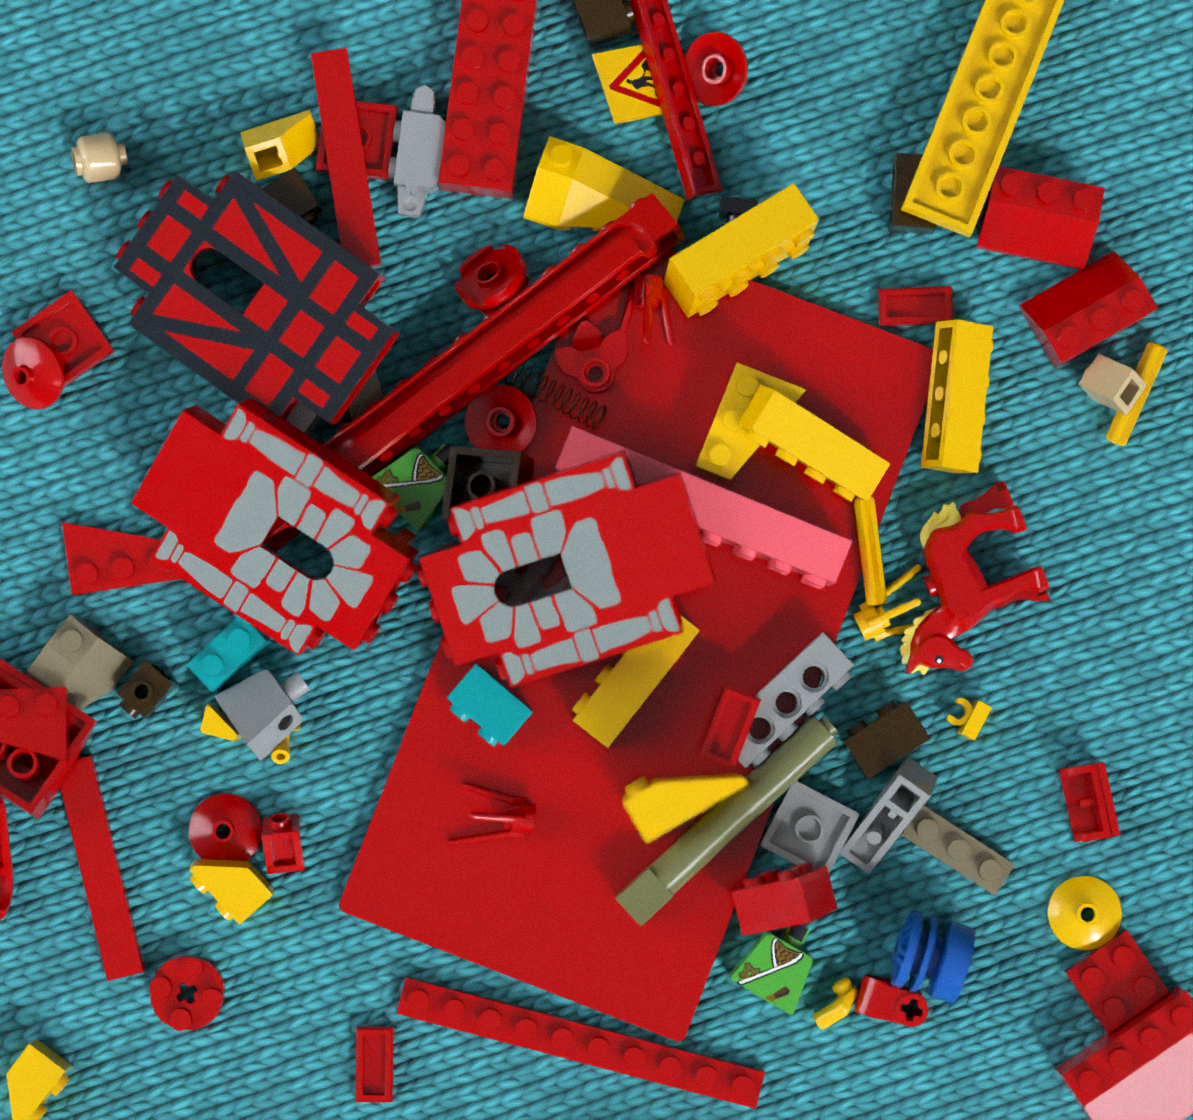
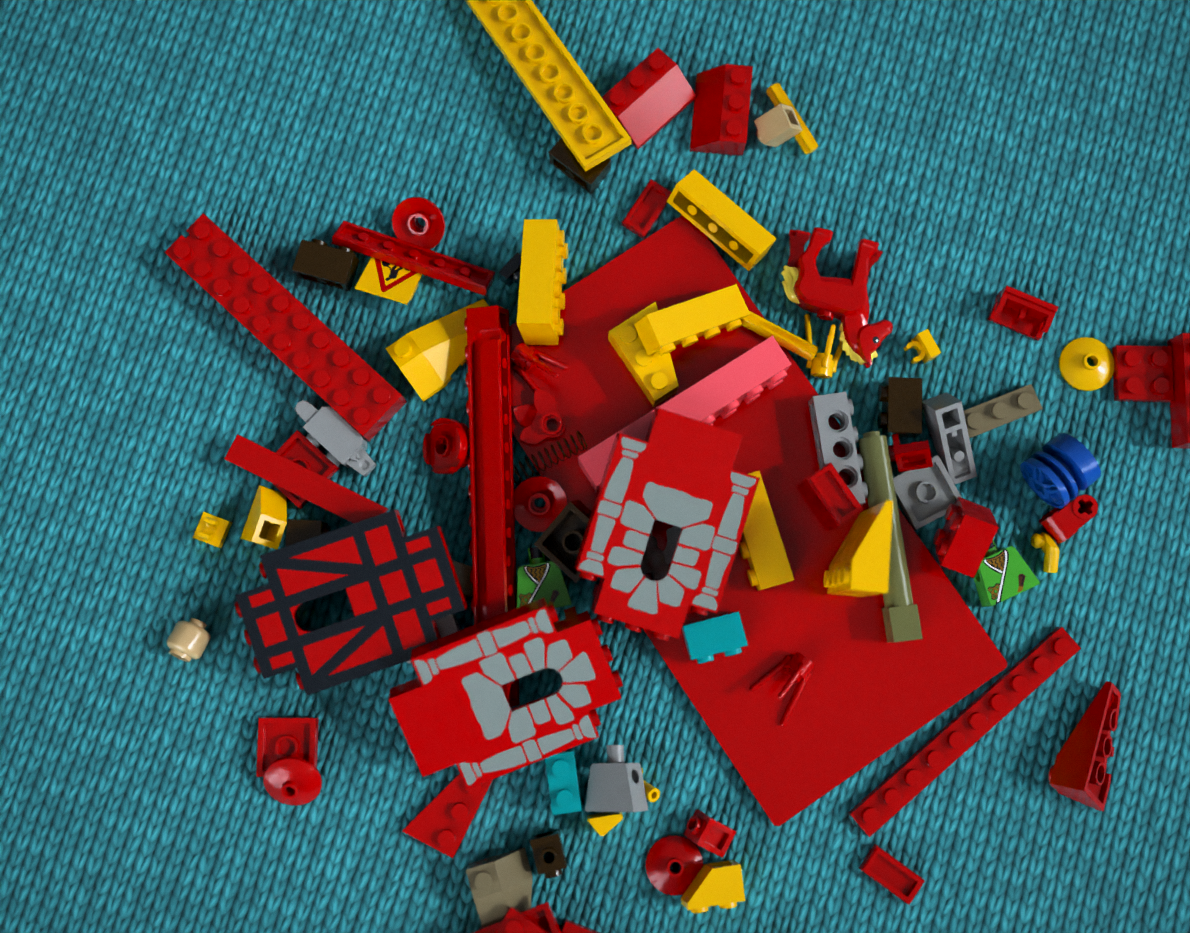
camera: 60 degrees left, 5 degrees down
(229, 95) = (212, 530): none -> yellow tile
(835, 784) = (910, 455): none -> red bracket

